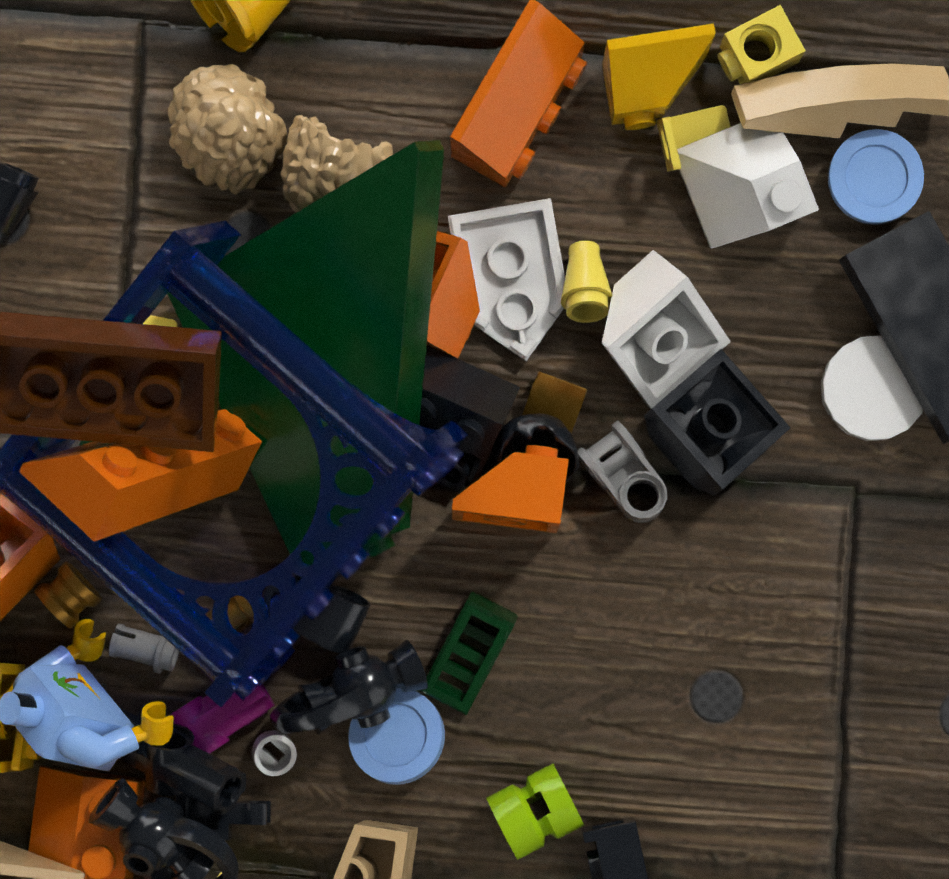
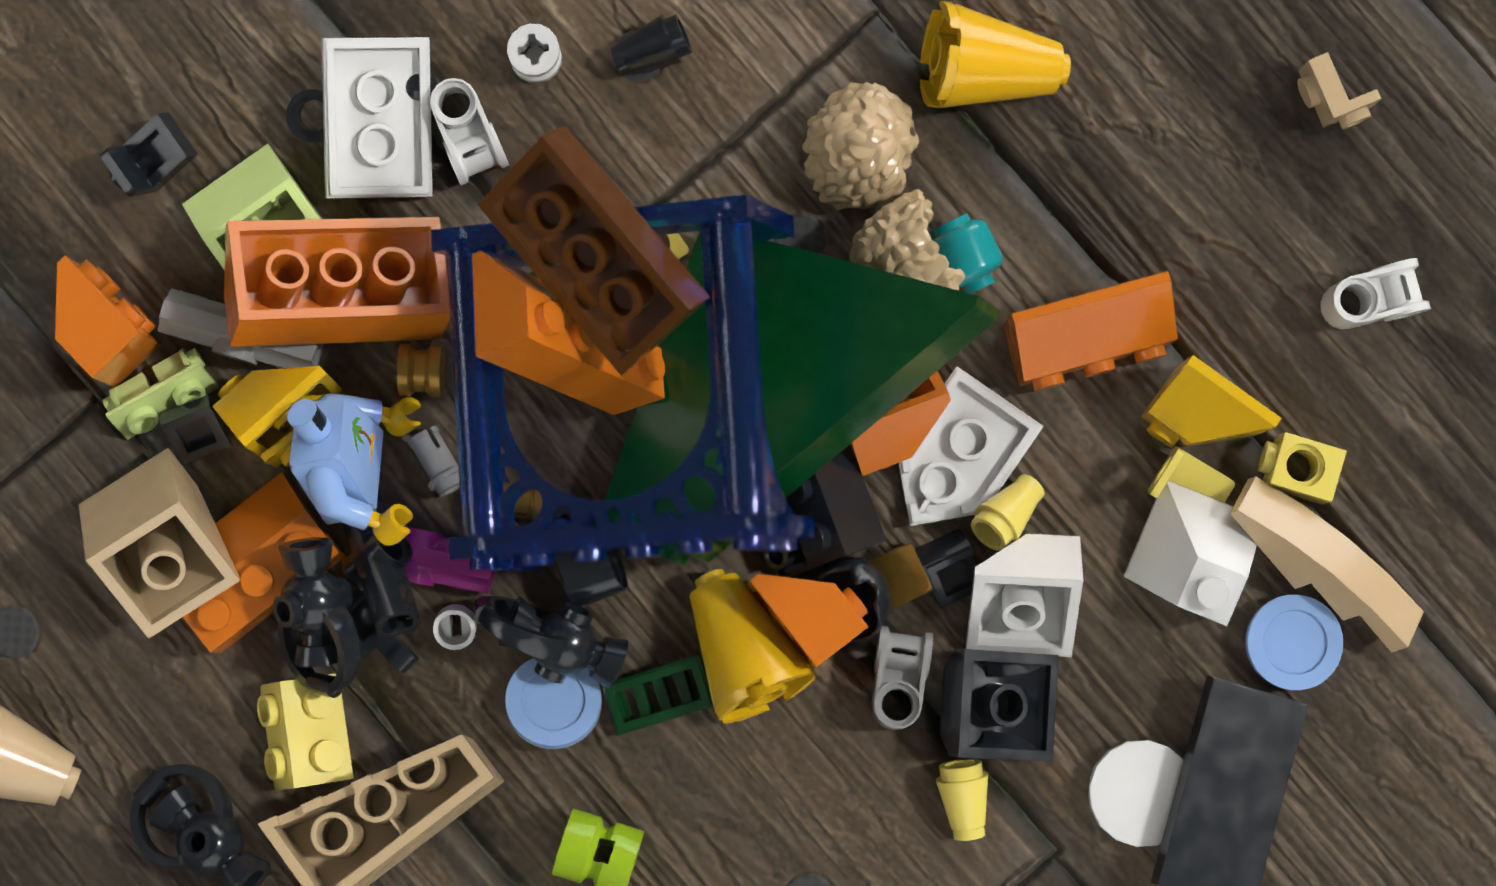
camera: 40 degrees right, 0 degrees up
(375, 121) = (971, 248): none -> teal head
(495, 564) = (743, 649): none -> yellow cone
(583, 362) = (949, 566): none -> black slope
(753, 513) = (964, 797): none -> light yellow cone

